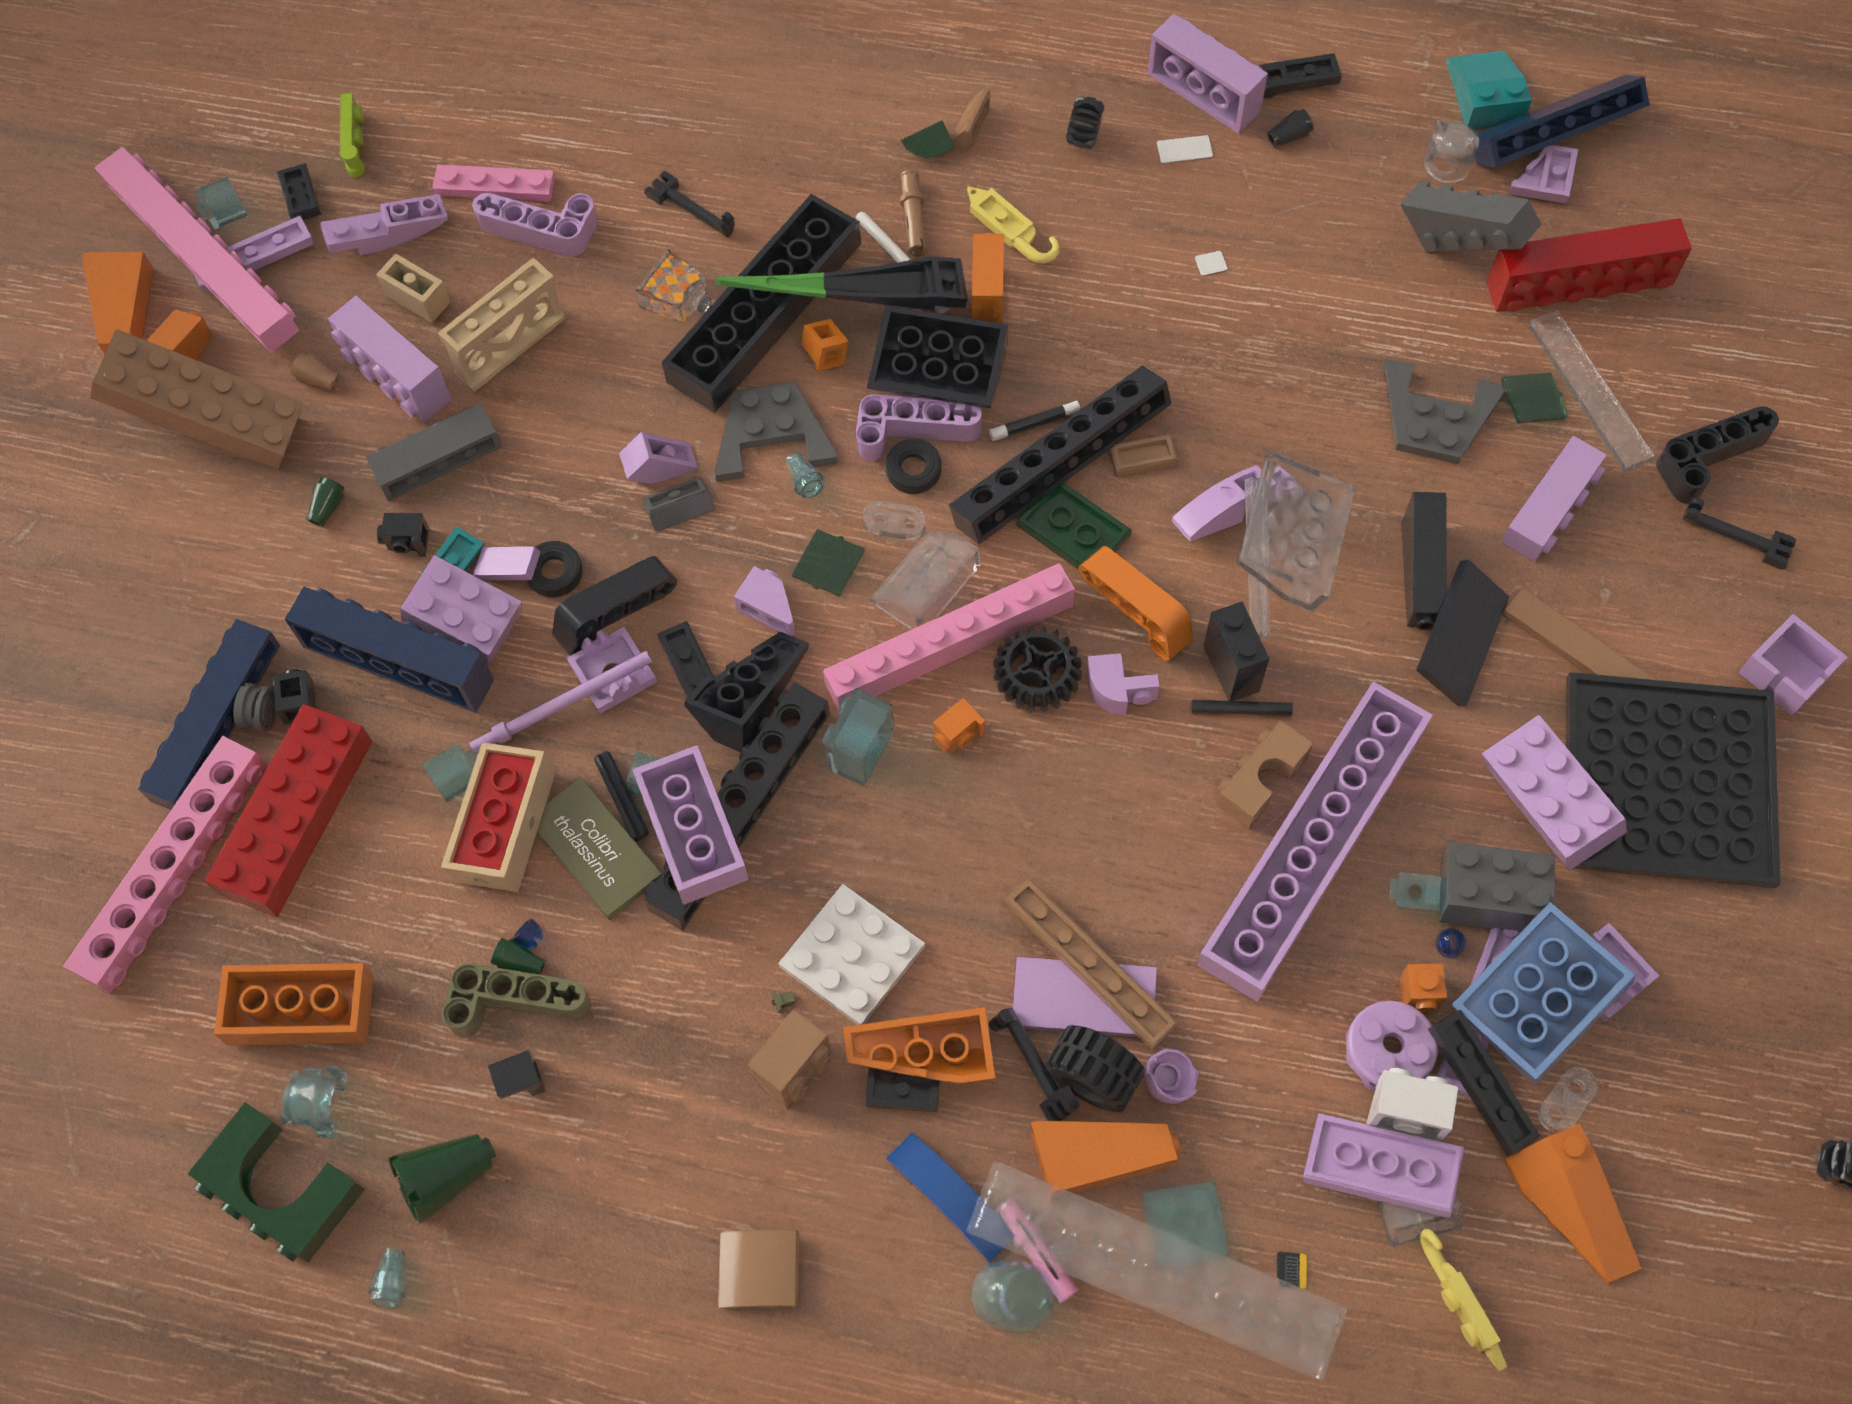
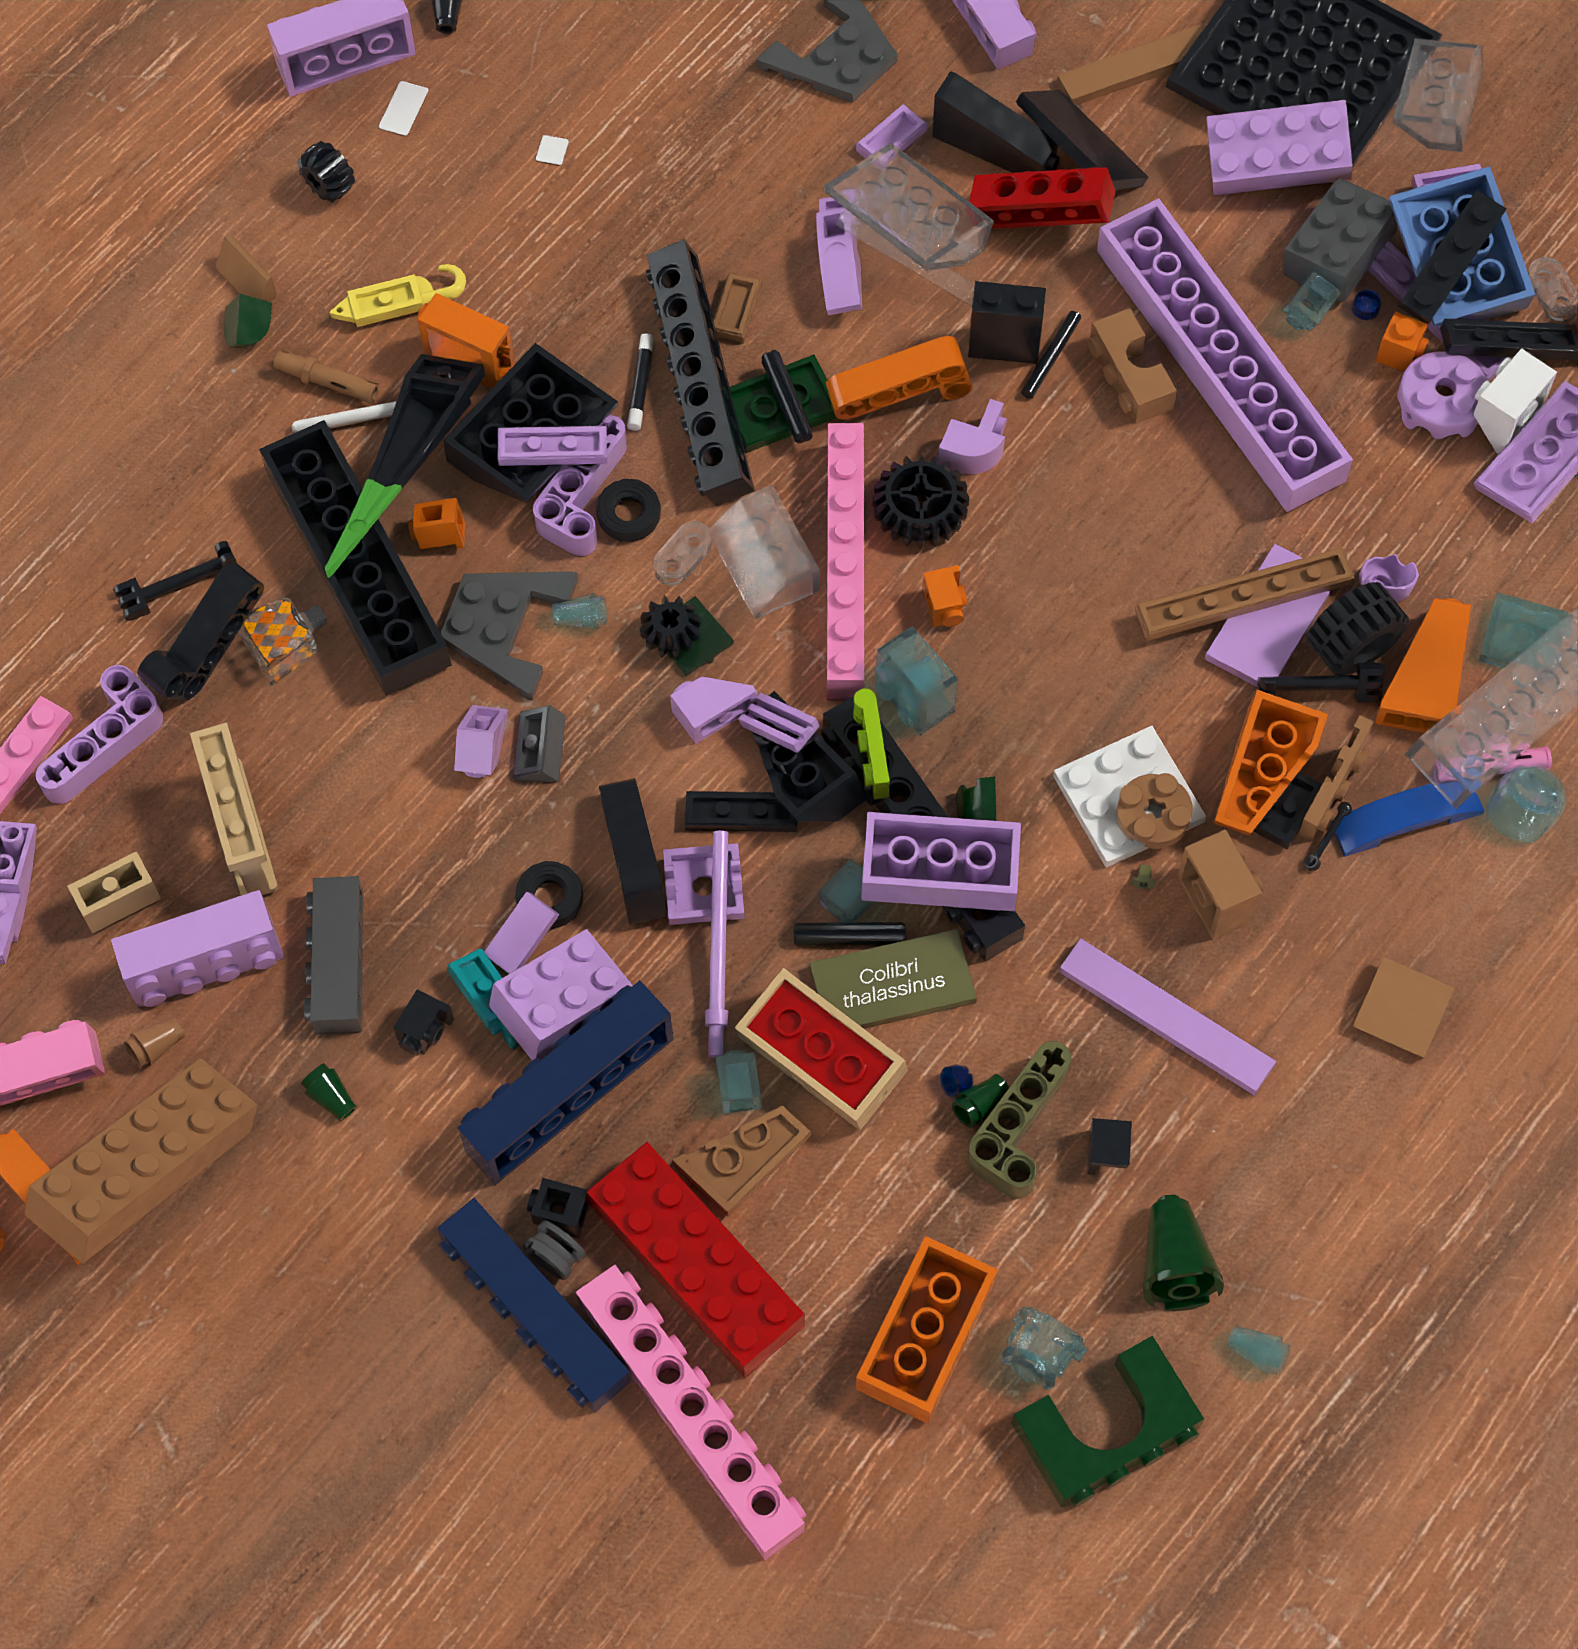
camera: 65 degrees left, 0 degrees up
(390, 806) = (741, 1161): none -> medium nougat wing
(636, 240) = (205, 637): none -> black beam
(661, 1076) = (1167, 1016): none -> lavender tile
(776, 637) = (759, 711): none -> lavender tile
(777, 727) = (871, 741): none -> lime plate
(777, 844) = (977, 801): none -> dark green brick
(819, 540) = (670, 615): none -> black gear
(836, 996) = (1144, 827): none -> medium nougat plate
(864, 1134) = (1312, 861): none -> black hinge
(921, 379) = (552, 445): none -> lavender tile
(956, 1116) = (1336, 787): none -> medium nougat wing
(1075, 526) = (787, 396): none -> black axle
(1377, 625) = (1045, 197): none -> red brick
(1380, 492) = (899, 128): none -> lavender tile
(1523, 985) = (1452, 257): none -> black plate
(1710, 907) = (1439, 93): none -> clear slope

